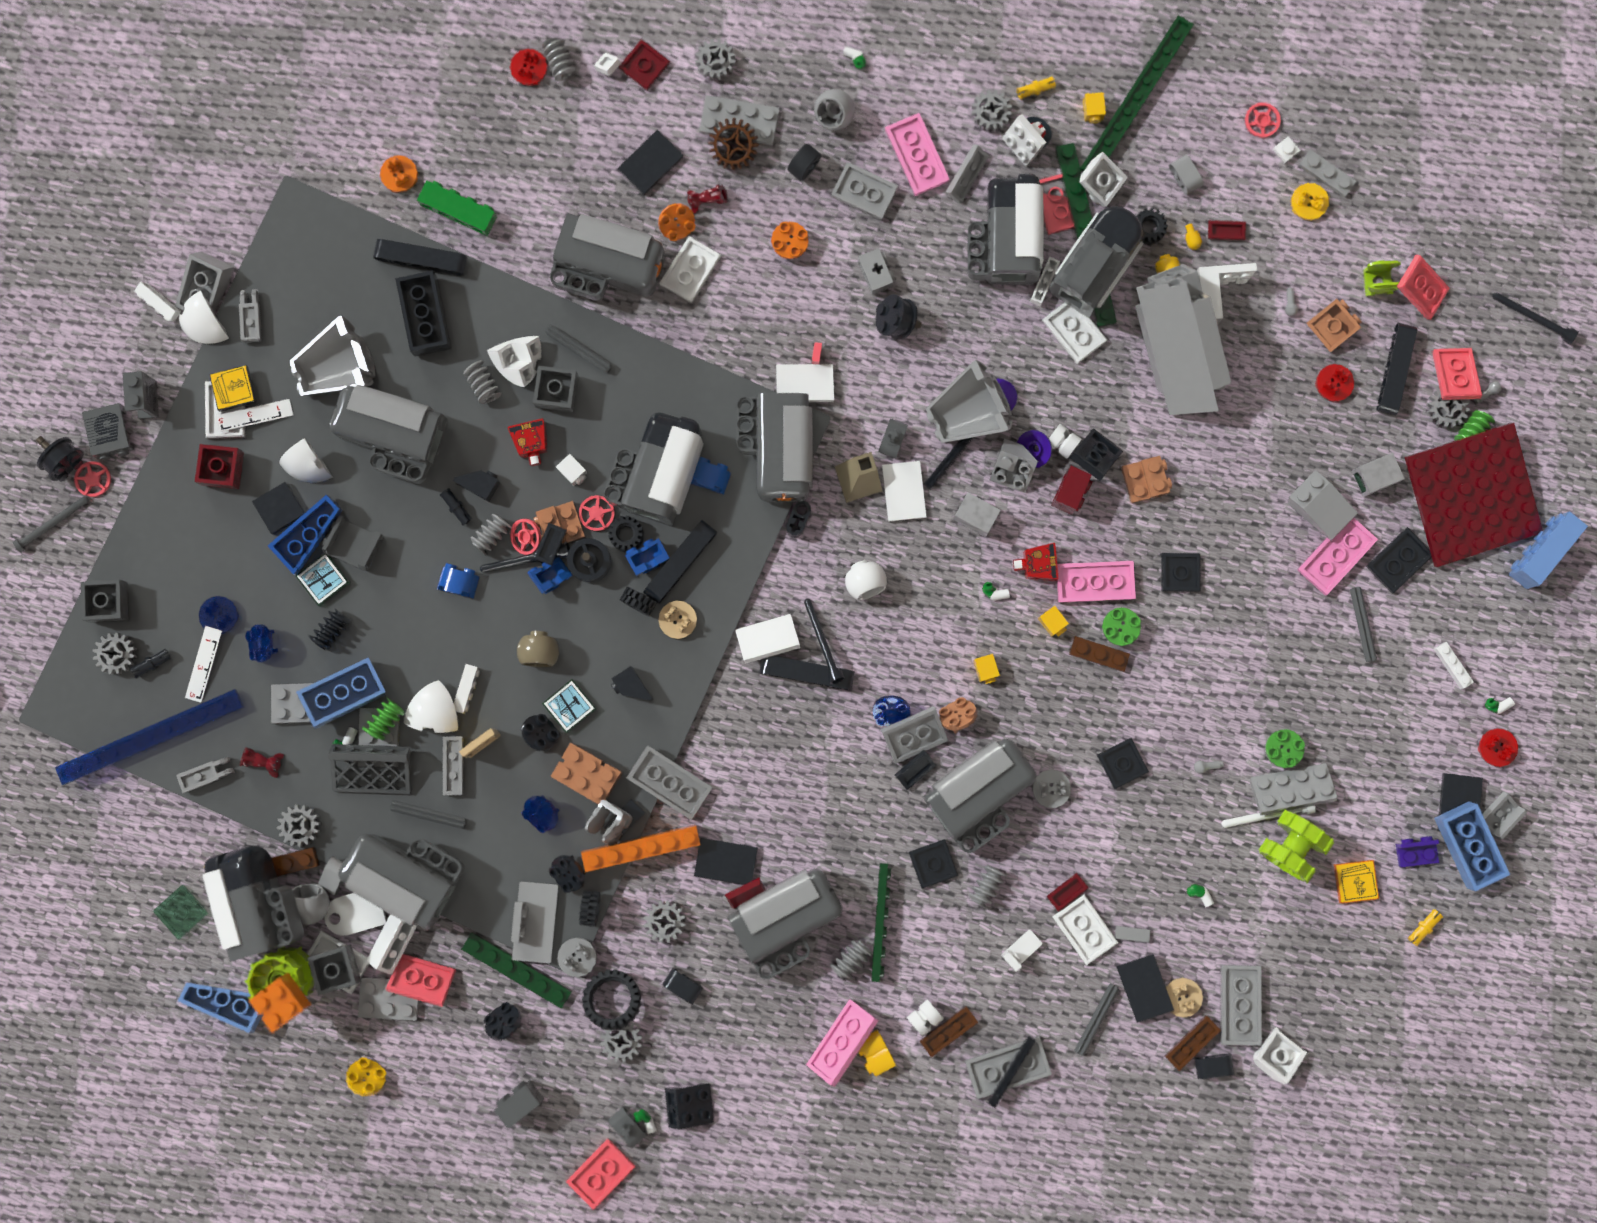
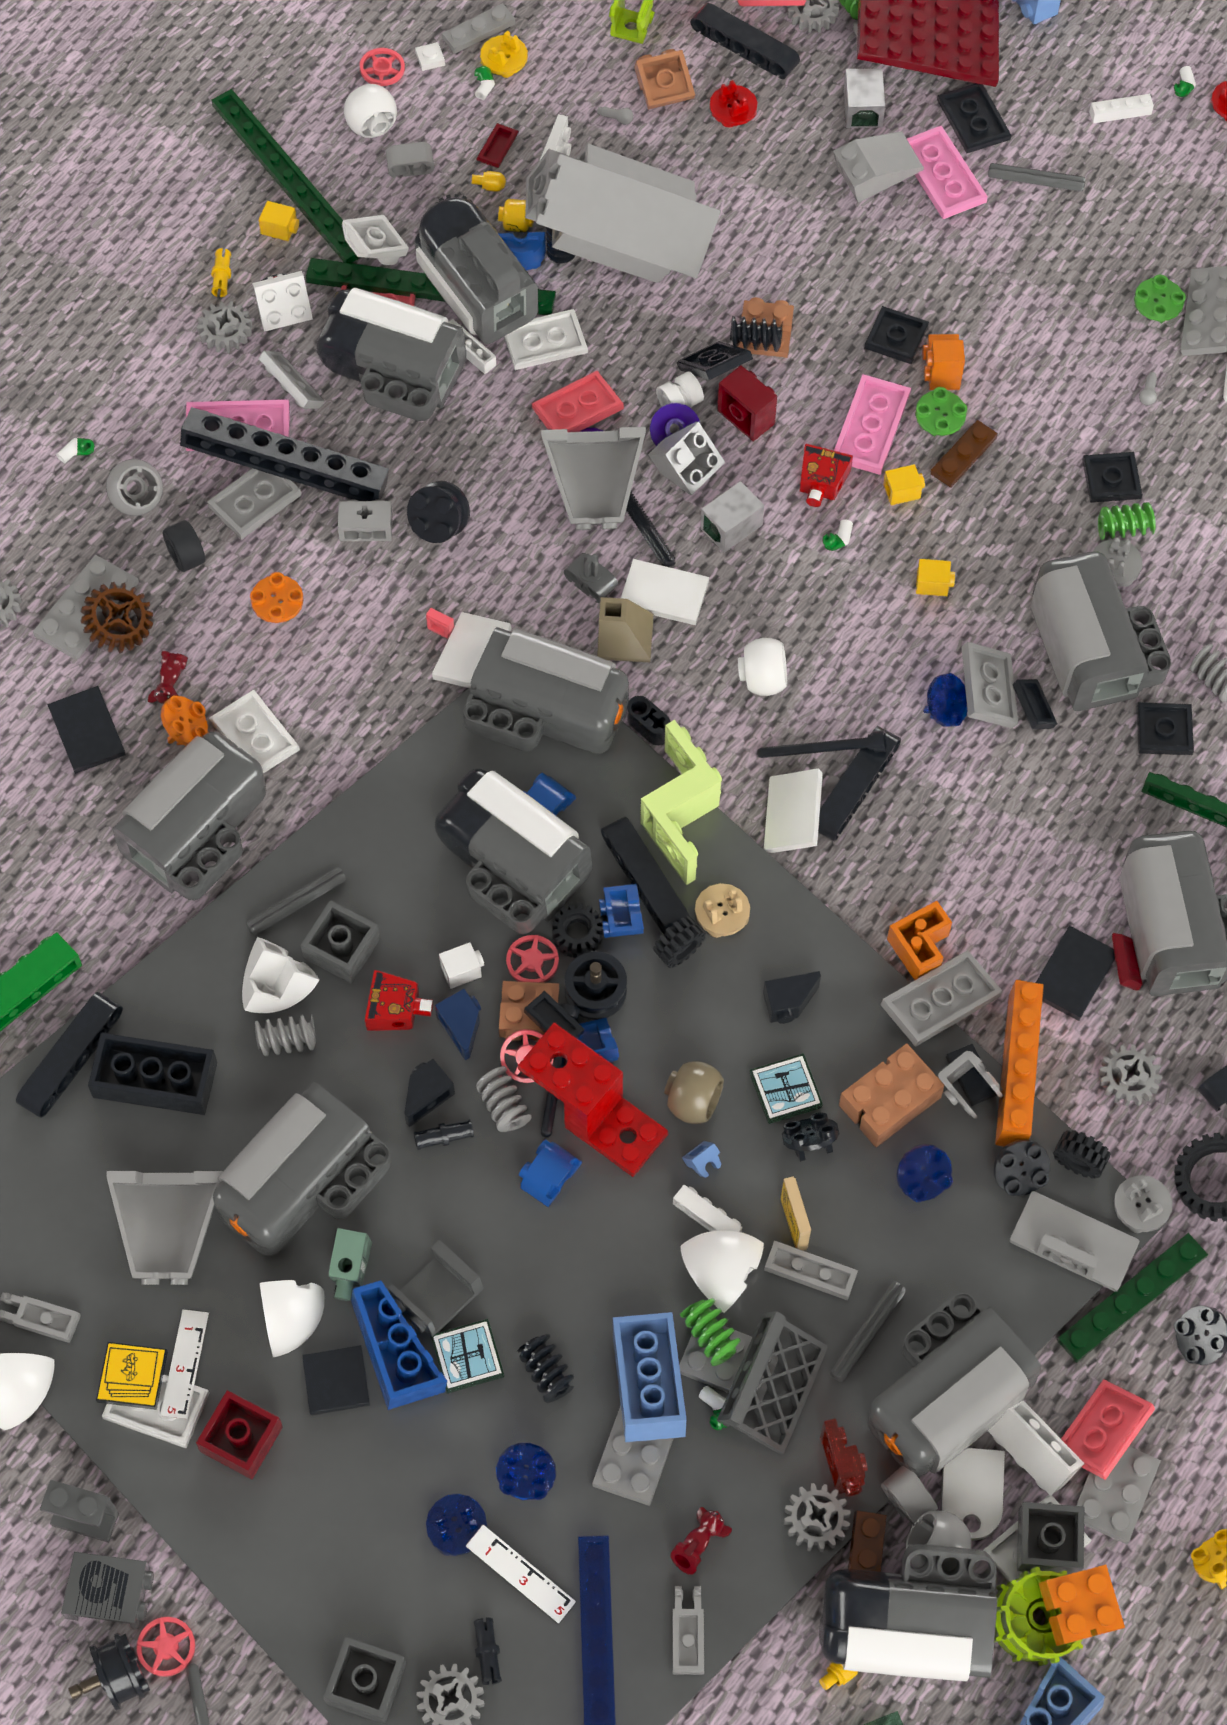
camera: 70 degrees left, 20 degrees down
(333, 830) = (845, 1463): none -> clear red plate
(349, 484) = (349, 1249): none -> sand green torso
(500, 670) = (700, 1156): none -> medium blue tile
(504, 589) = (593, 1099): none -> red bracket
(533, 486) = (460, 1019): none -> dark blue slope
(704, 749) = (916, 936): none -> orange brick
(738, 564) = (681, 801): none -> yellowish green bracket
(898, 129) = (283, 456): none -> black brick
(958, 715) = (983, 624): nougat plate -> none
(1028, 375) = (578, 404): none -> coral tile
(1085, 784) = (1126, 519): none -> bright green piece
(1130, 475) = (756, 334): none -> black piece
(1133, 280) = (528, 250): none -> blue cylinder
(1168, 613) = (944, 361): none -> orange brick
(1212, 129) = (370, 110): none -> white wheel
(1279, 200) = (487, 82): none -> arm

